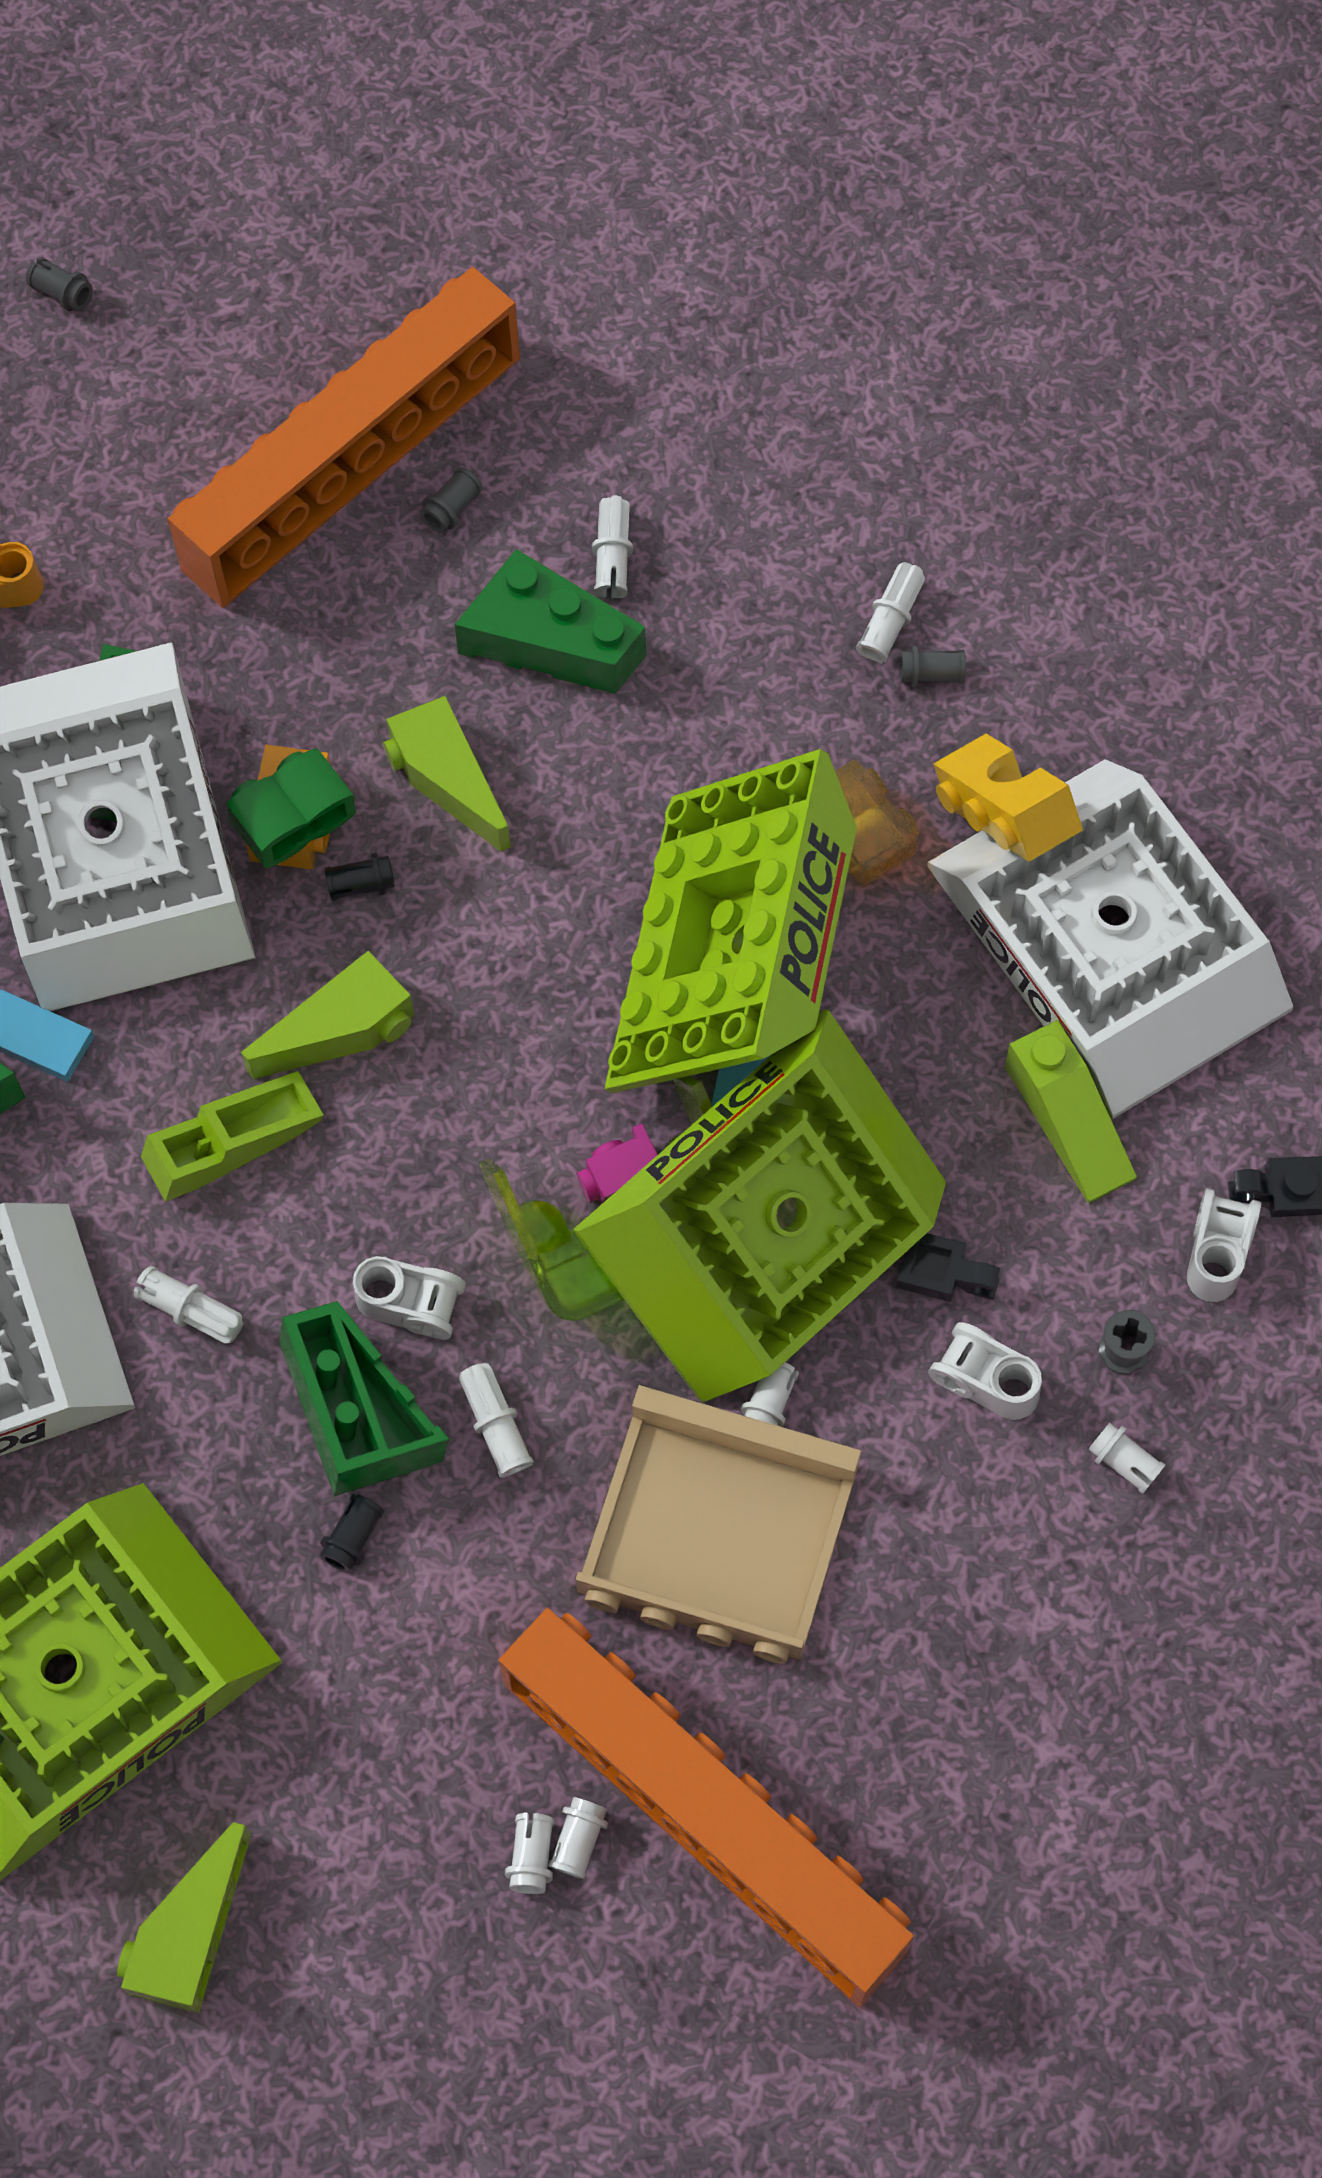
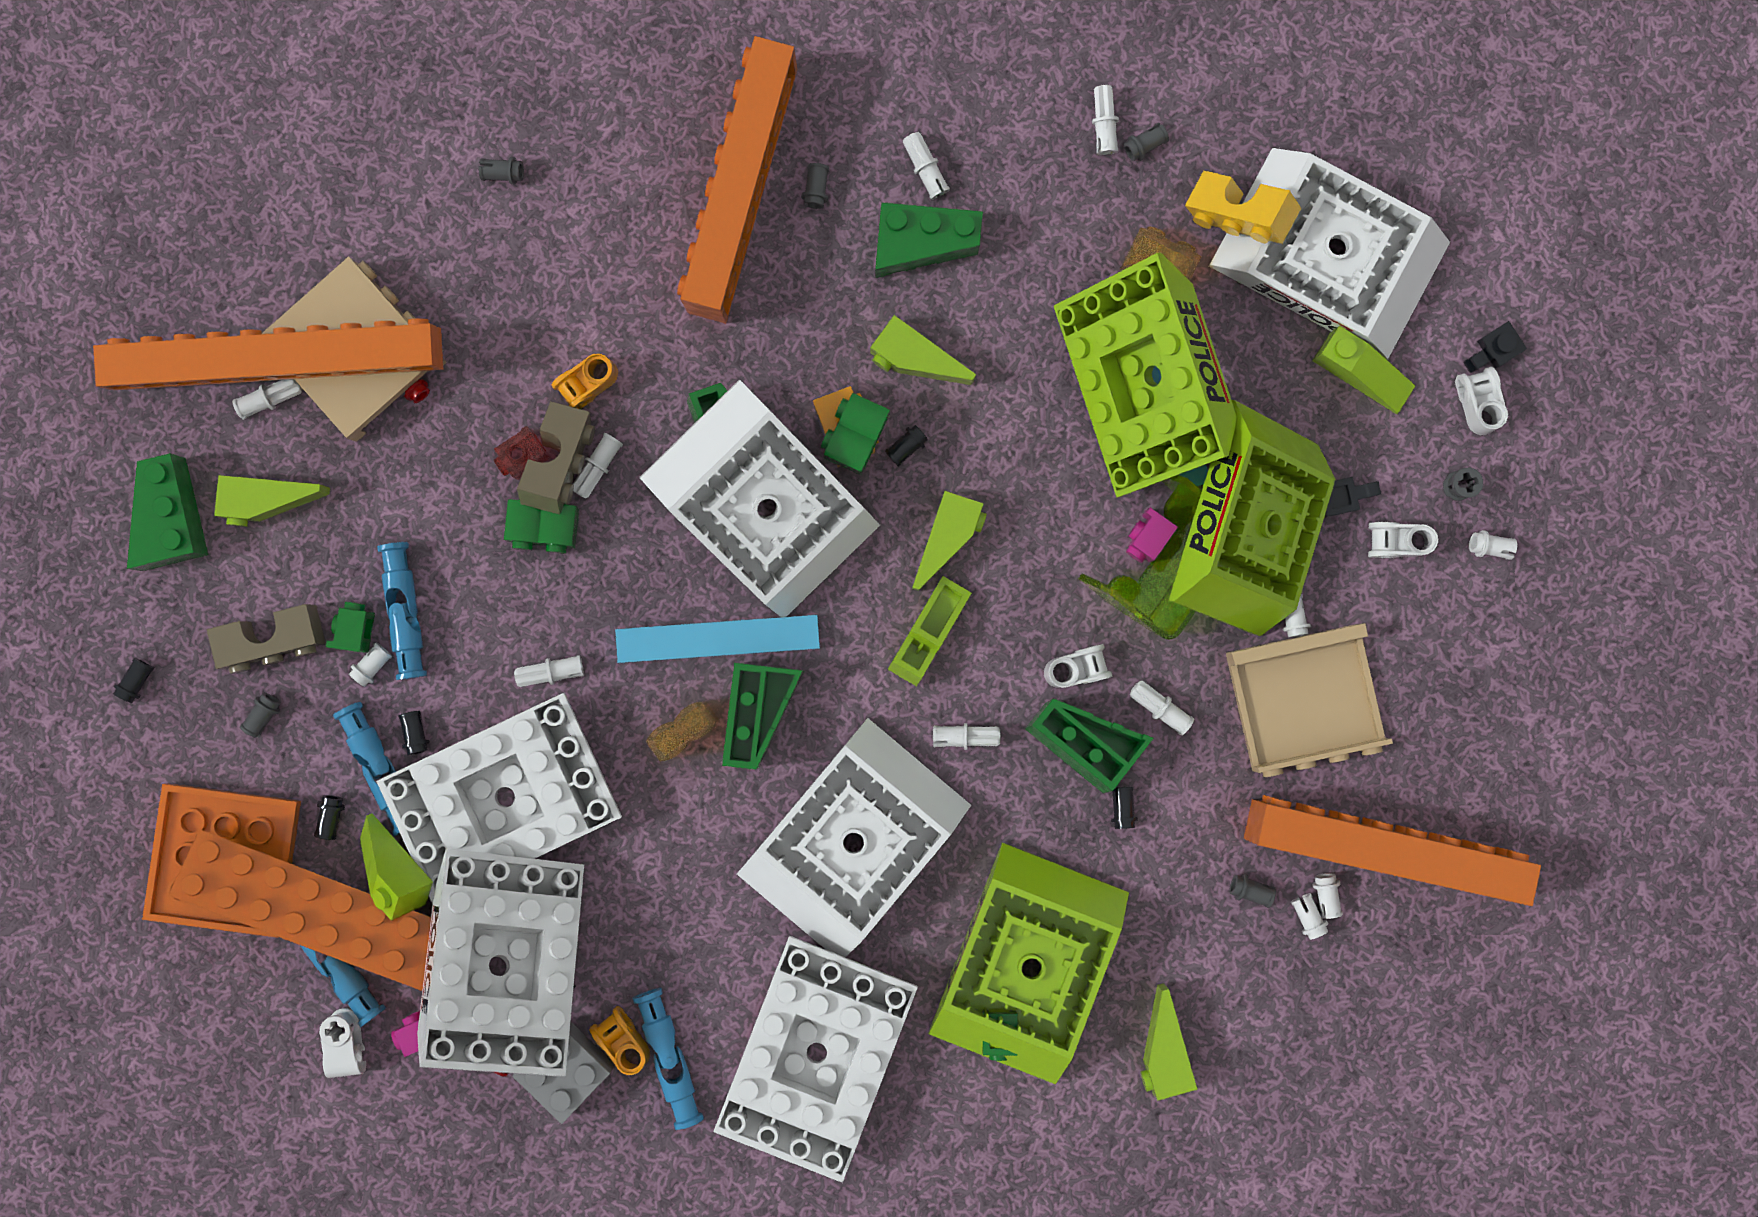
camera: 30 degrees left, 20 degrees up
(466, 1764) = (1251, 890): none -> dark grey pin

